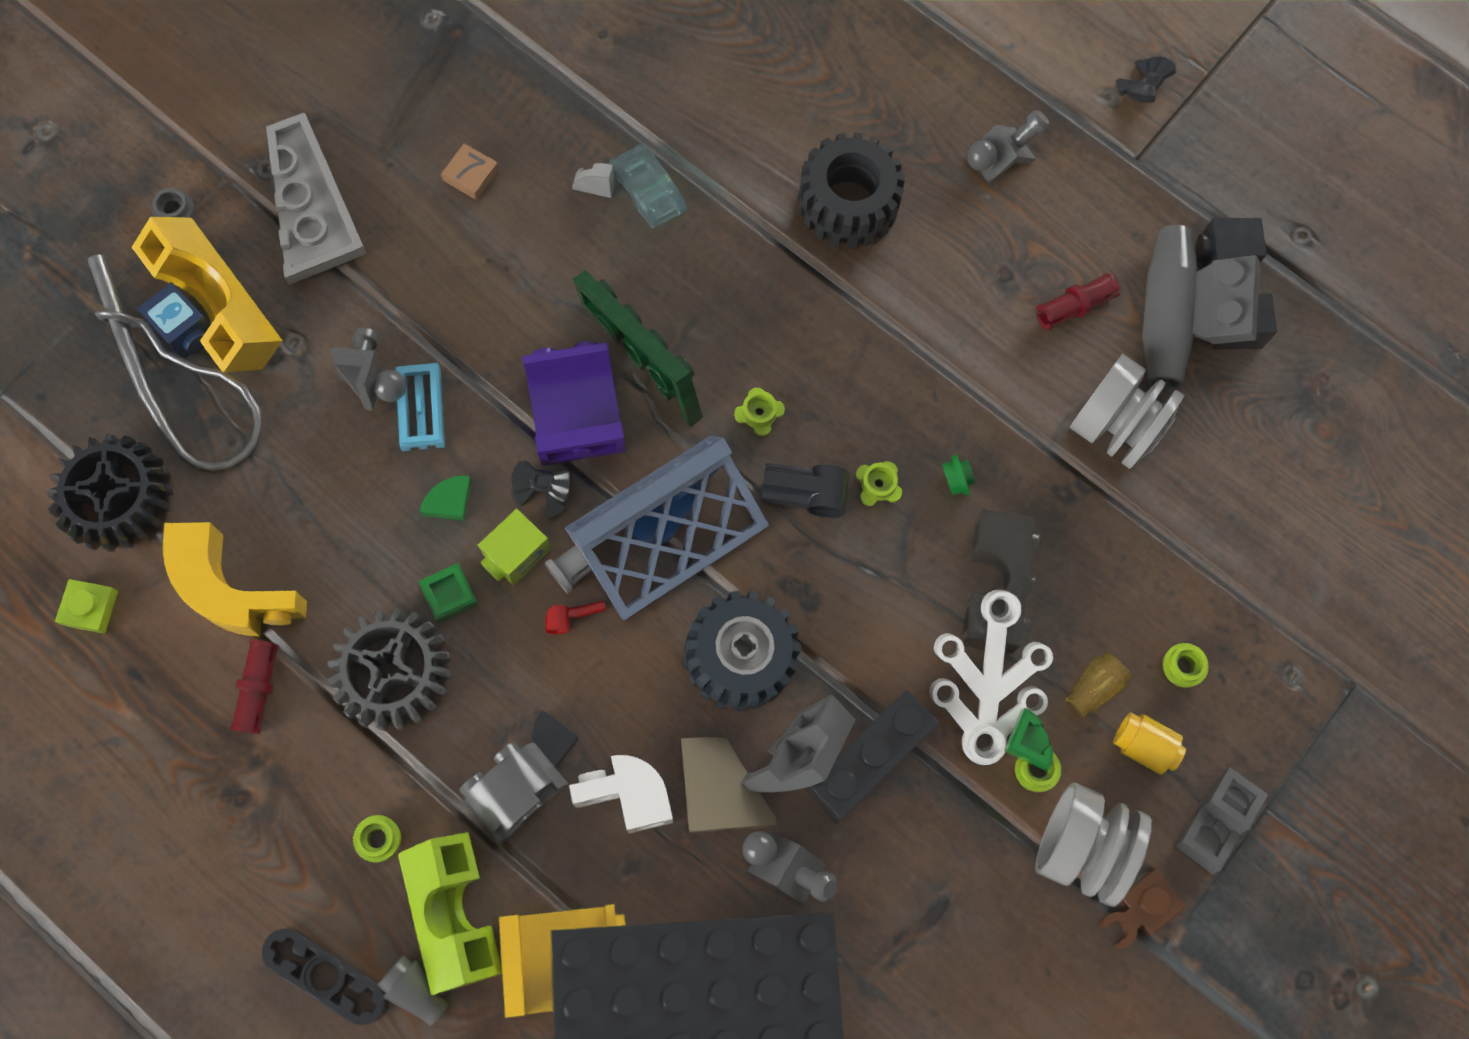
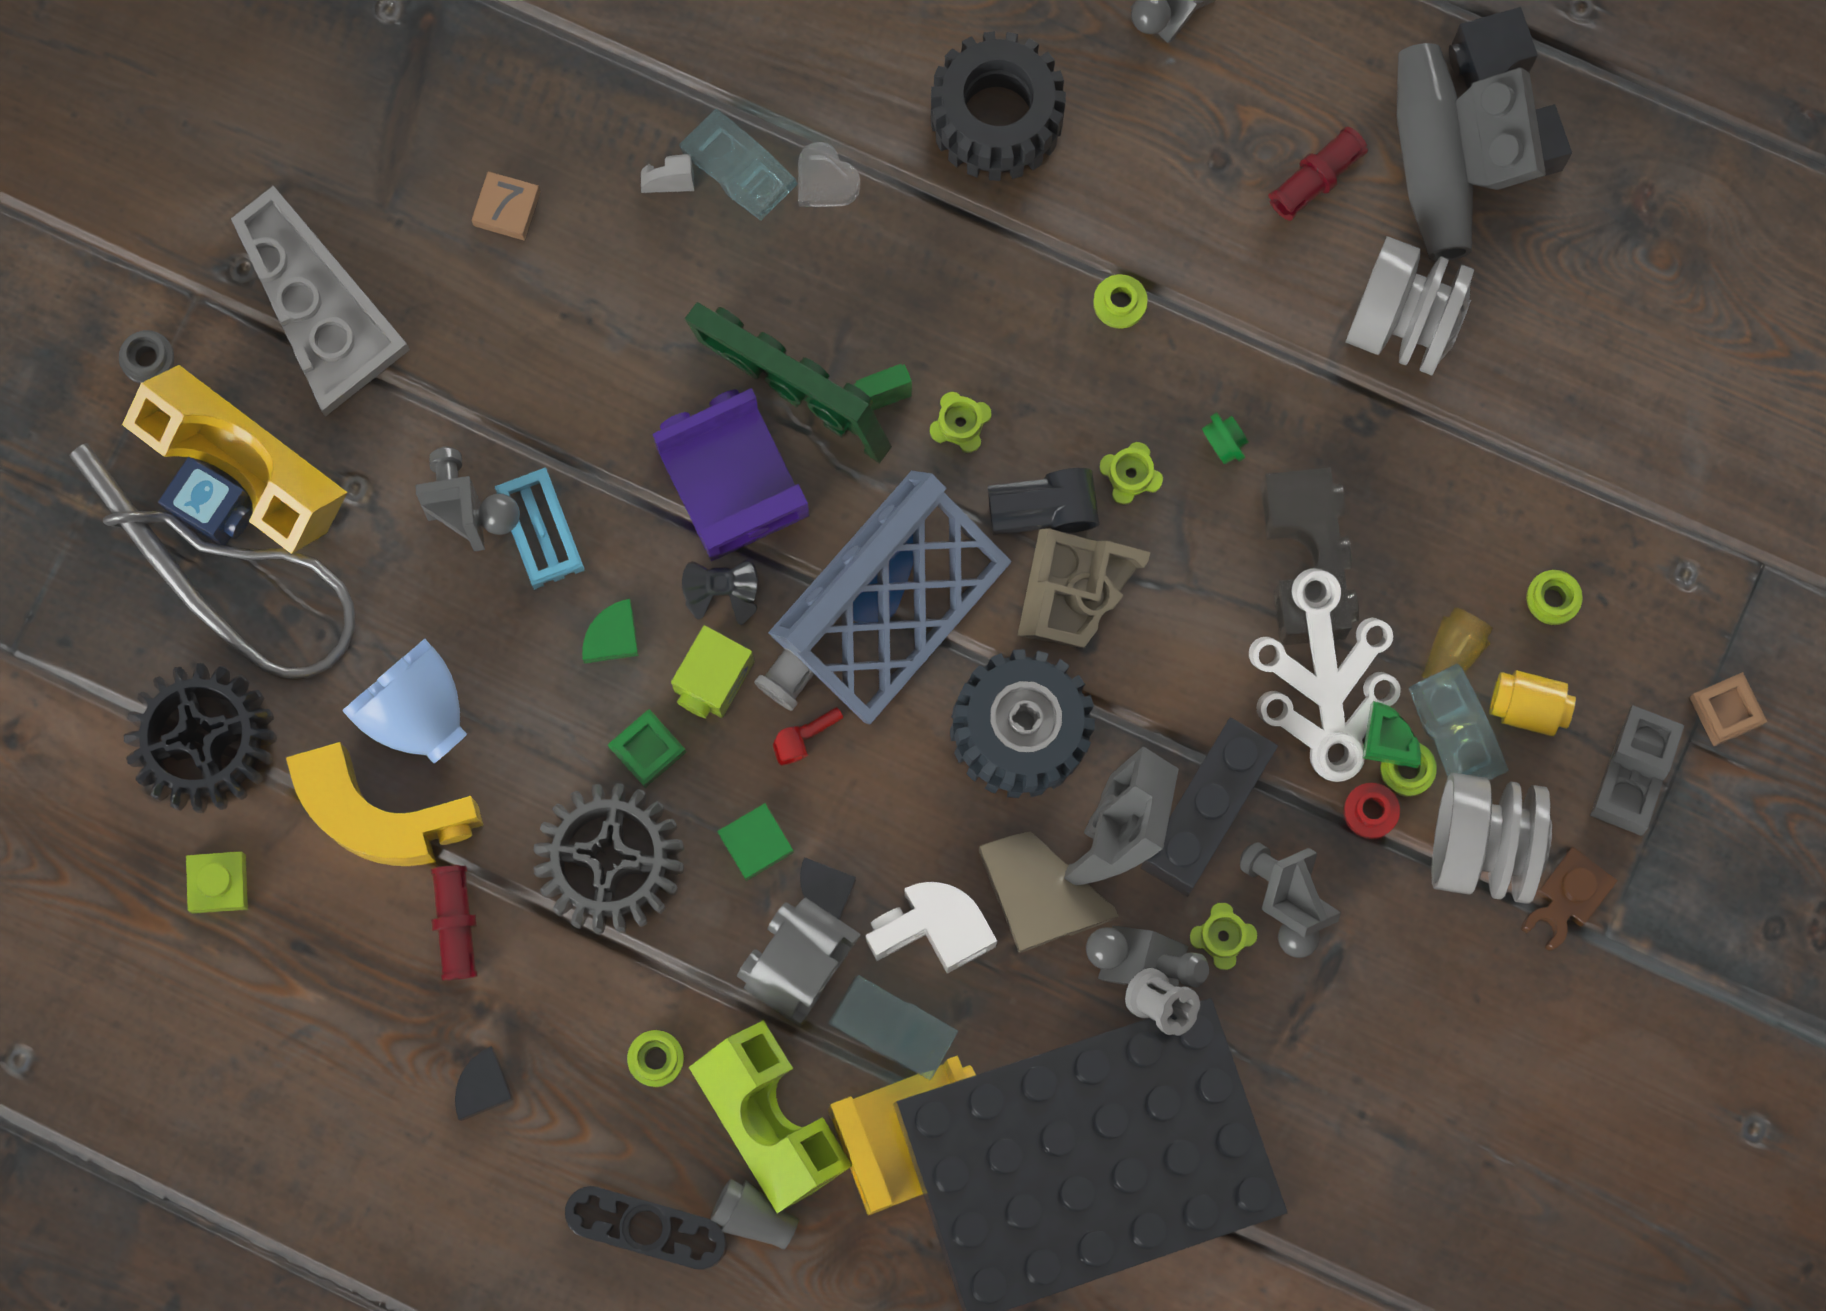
camera: 10 degrees left, 5 degrees up
(234, 822) = (481, 1086): none -> black tile
(274, 509) = (412, 706): none -> light blue piece
(508, 687) = (755, 842): none -> green tile
(572, 866) = (893, 1027): none -> clear light blue slope
(708, 212) = (824, 178): none -> clear tile
(710, 370) = (887, 386): none -> green tile
(792, 906) = (1162, 1001): none -> light grey bush
(812, 557) = (1074, 586): none -> dark tan slope
(859, 851) = (1239, 933): none -> lime plate
(900, 365) = (1120, 316): none -> lime plate
(918, 848) = (1291, 897): none -> dark grey piece
(988, 801) = (1362, 824): none -> red plate
(1086, 744) = (1458, 724): none -> clear light blue slope
(1304, 791) = (1728, 709): none -> medium nougat tile

